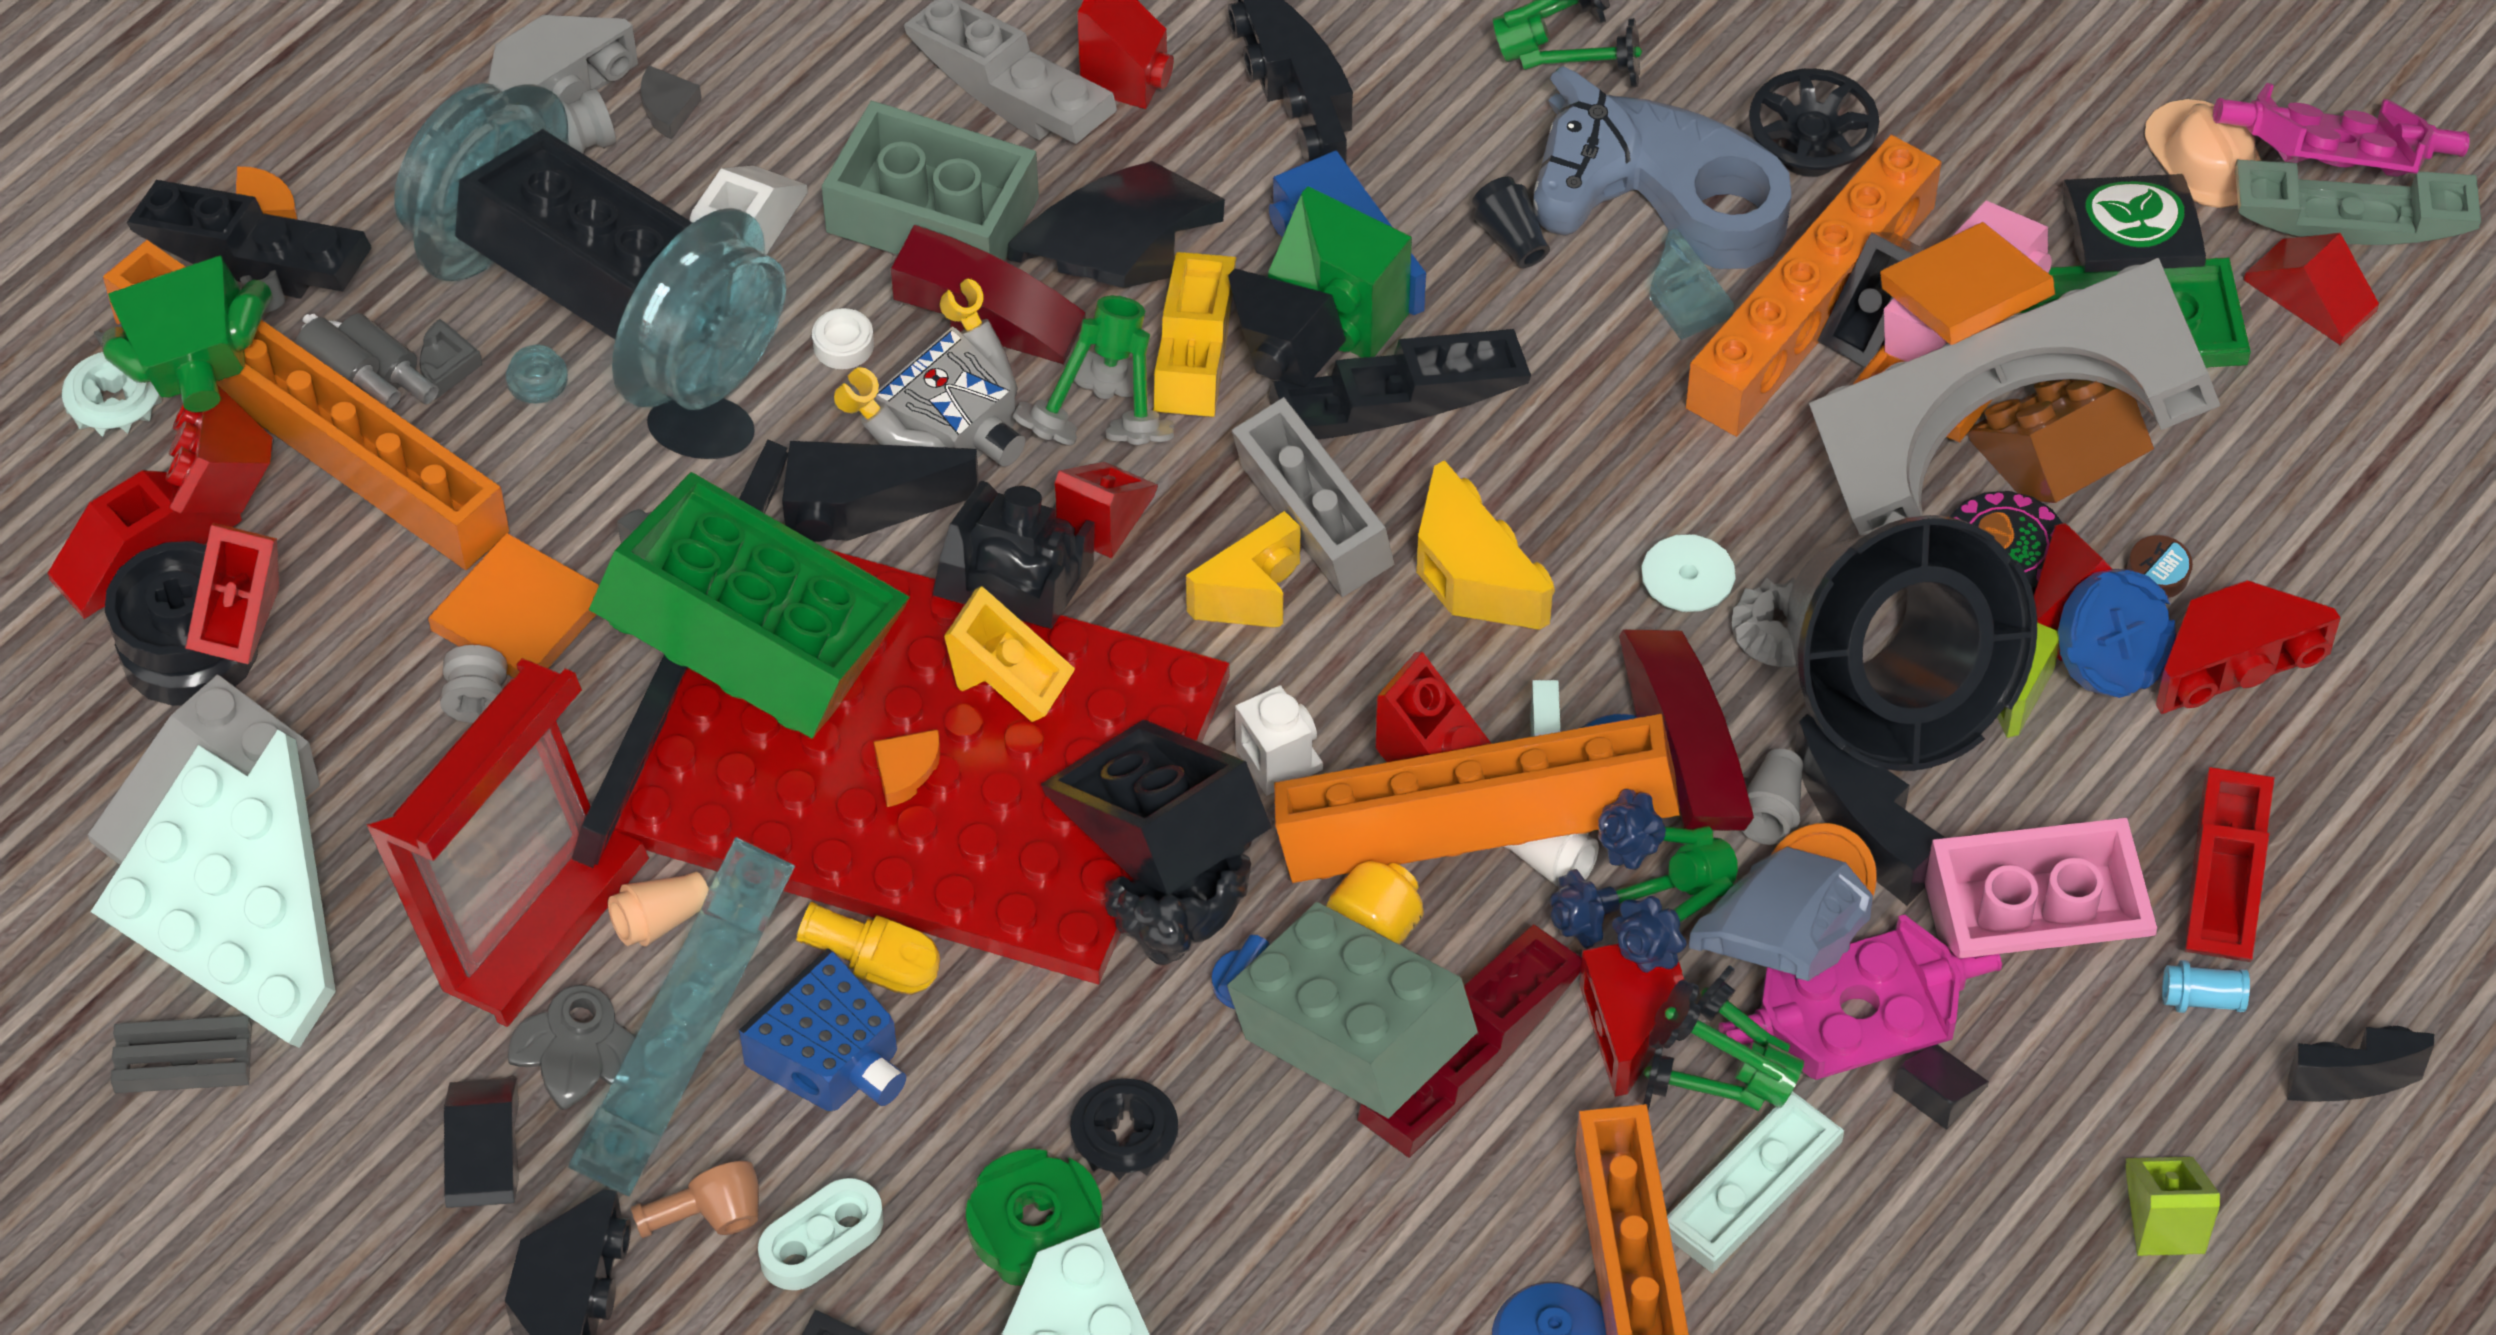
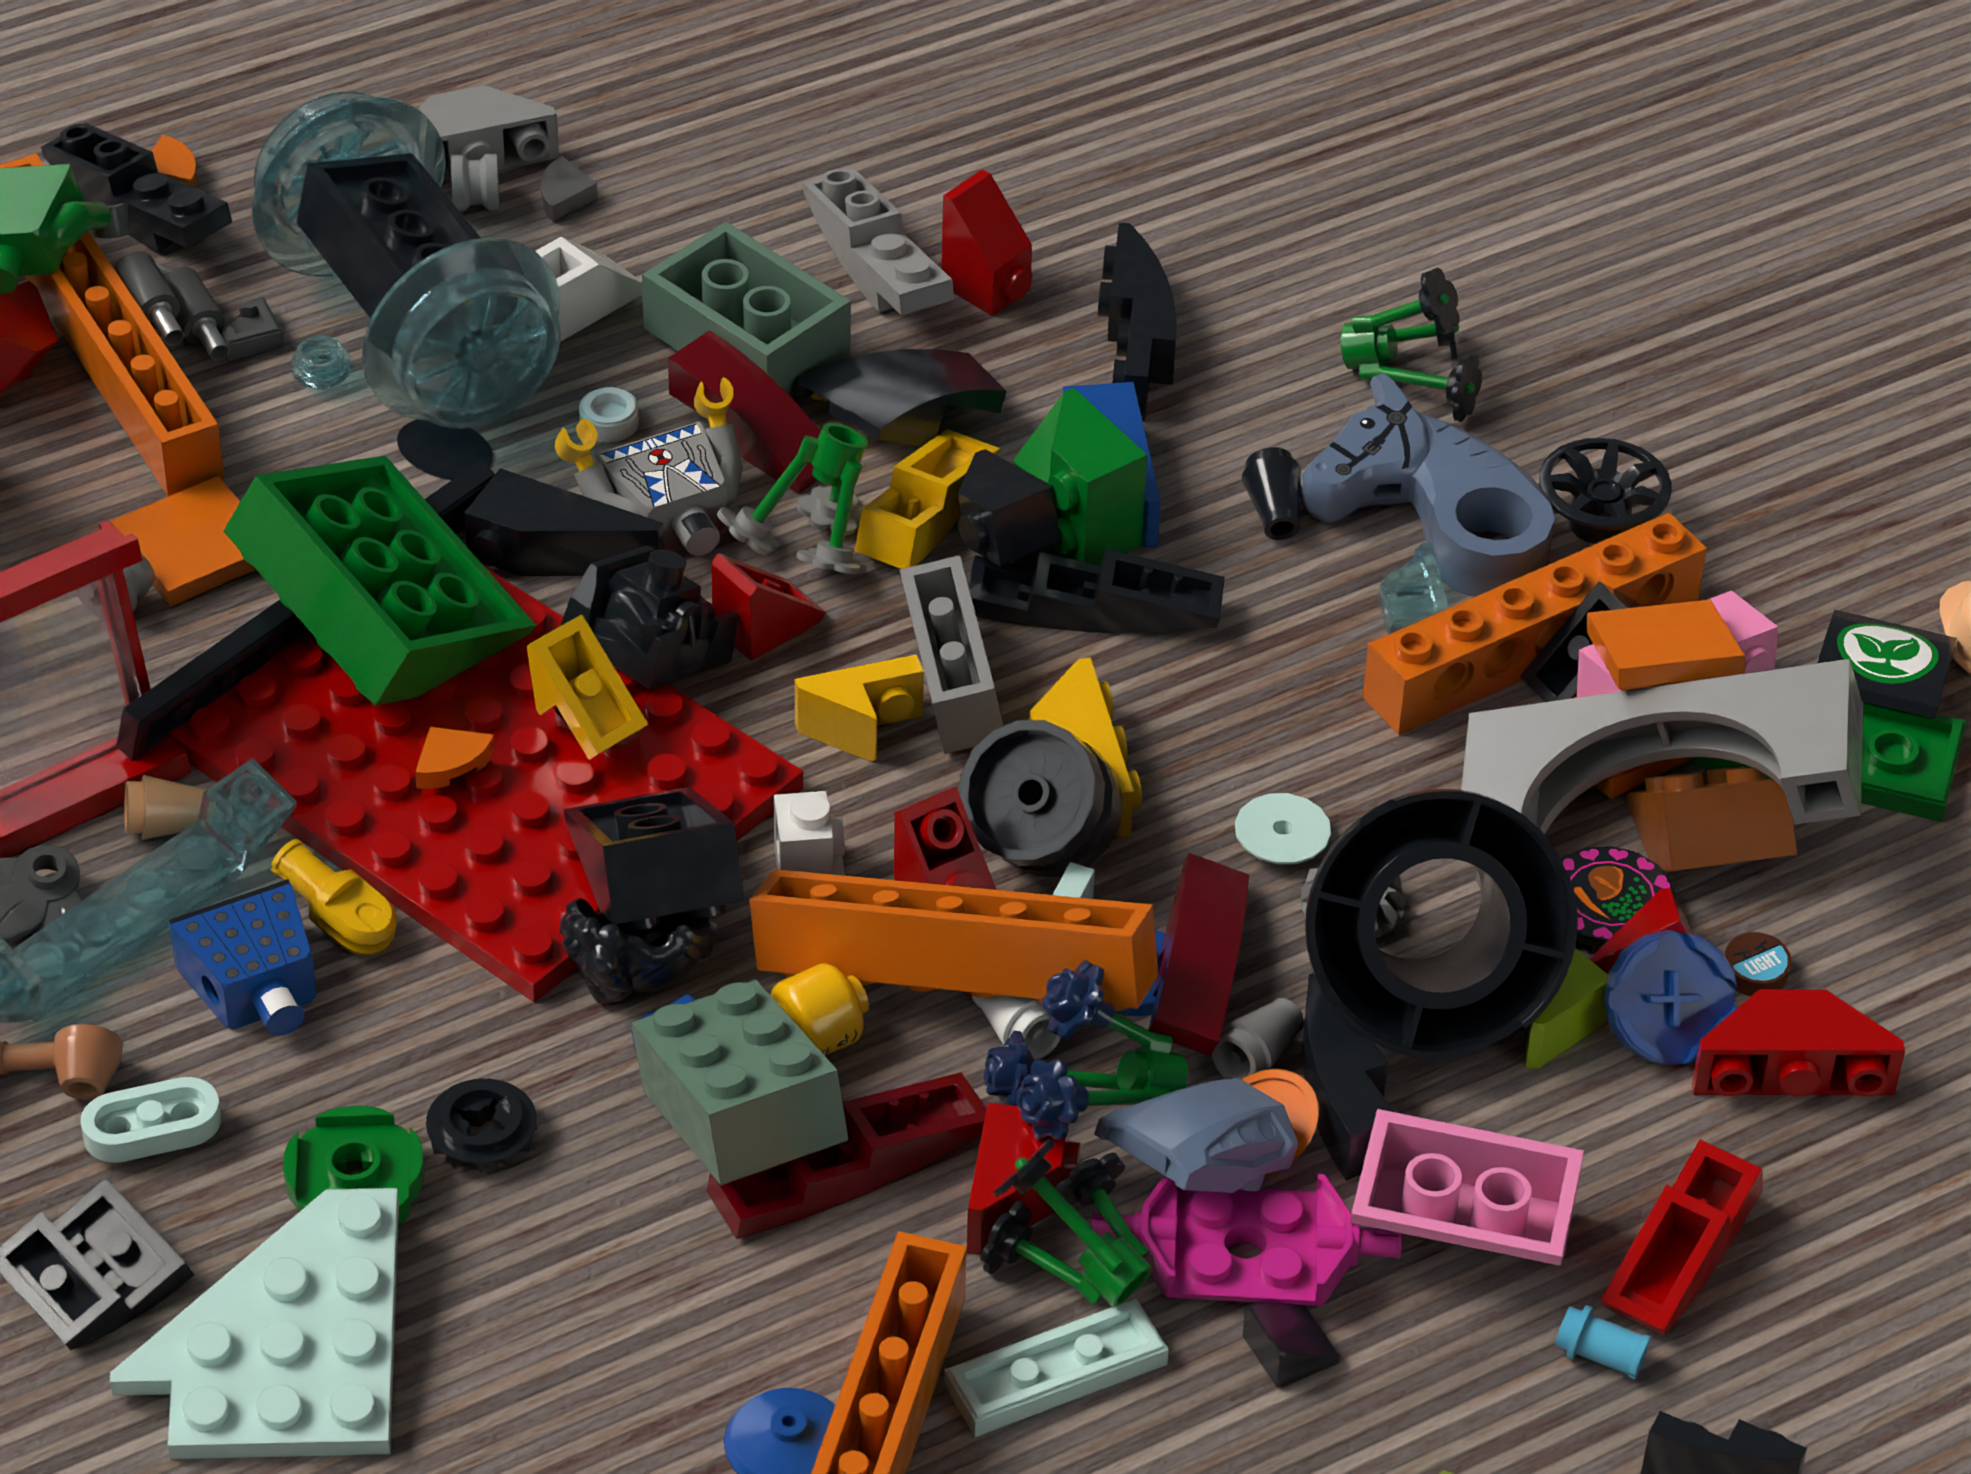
camera: 20 degrees right, 10 degrees down
(1508, 601) = (1040, 797): none -> black wheel

